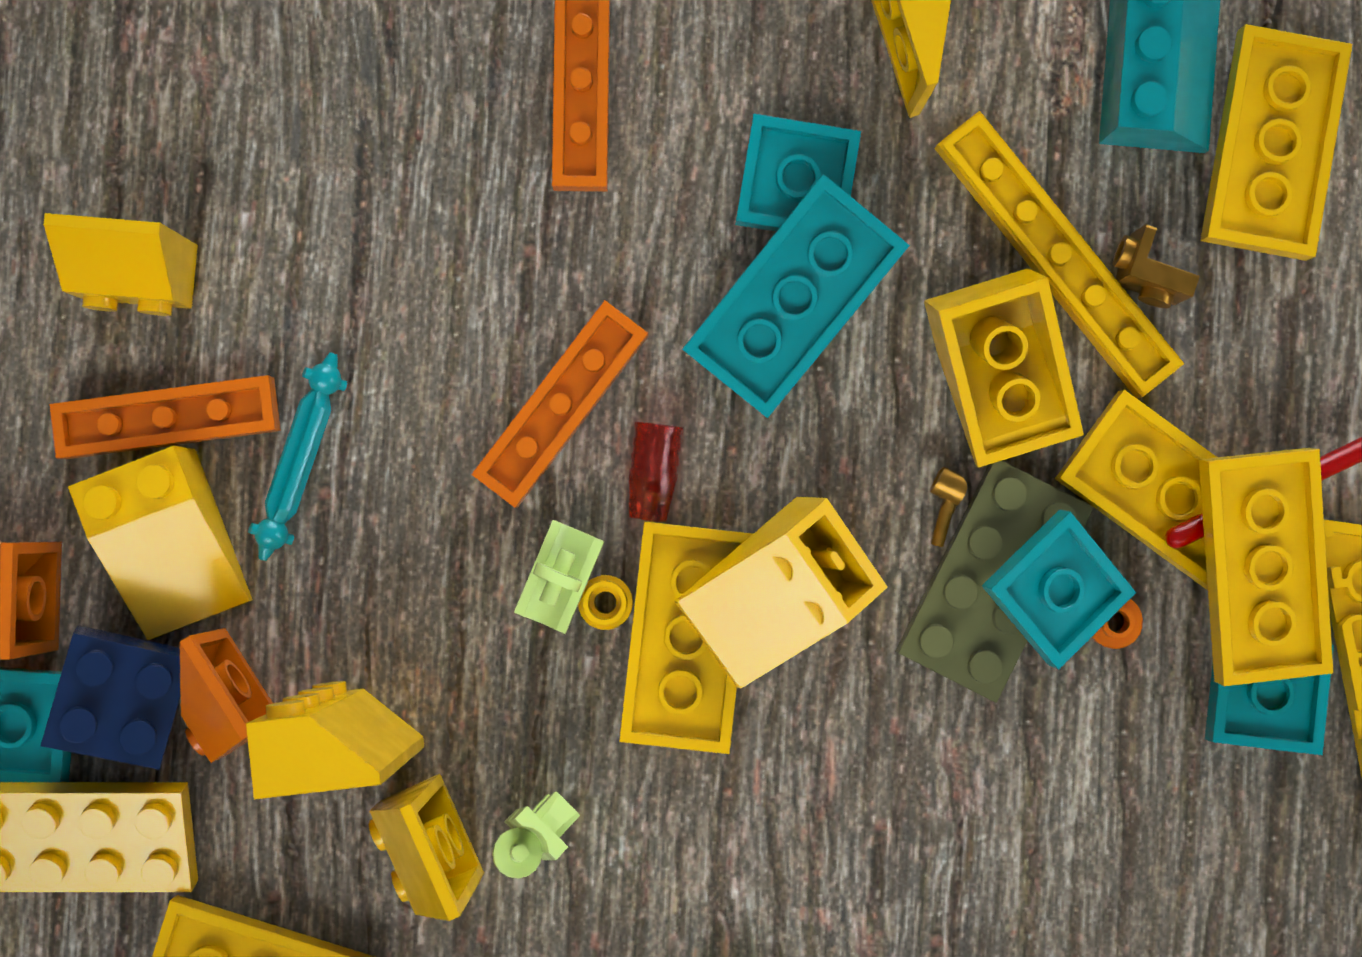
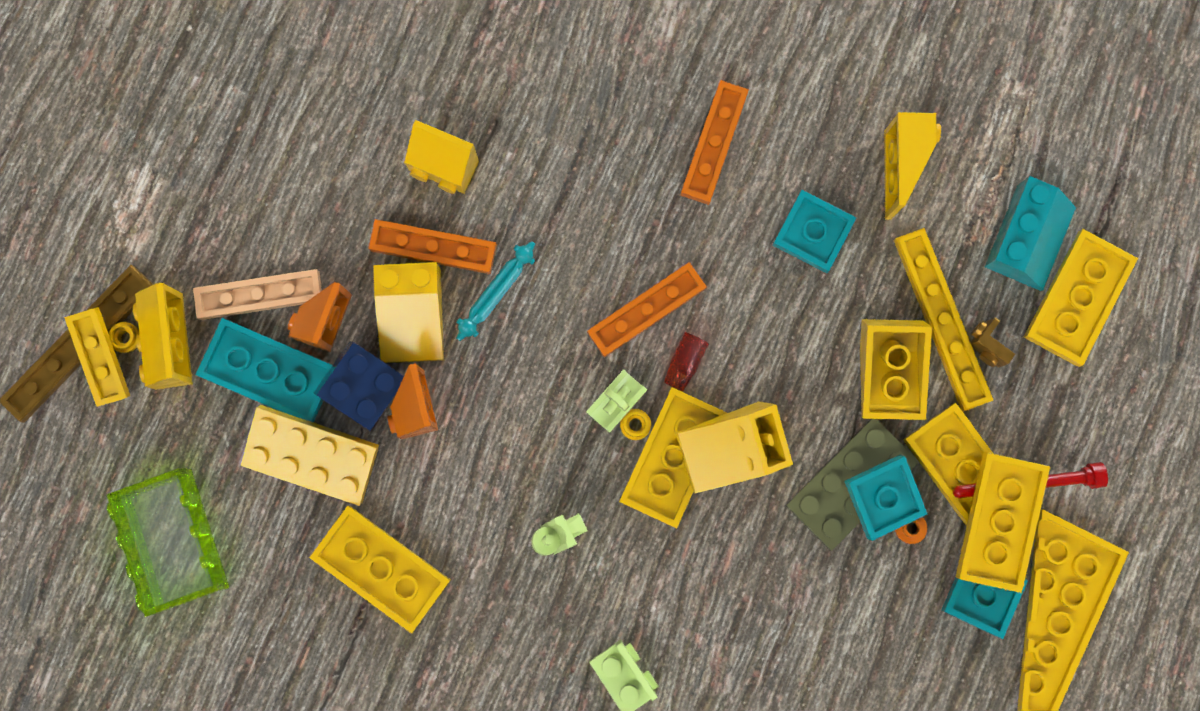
camera: 20 degrees right, 5 degrees down
(327, 742) = (468, 440): yellow slope -> none
(427, 848) = (494, 521): yellow slope -> none
(795, 296) = (793, 293): teal plate -> none
(952, 489) = (844, 426): pearl gold hand -> none

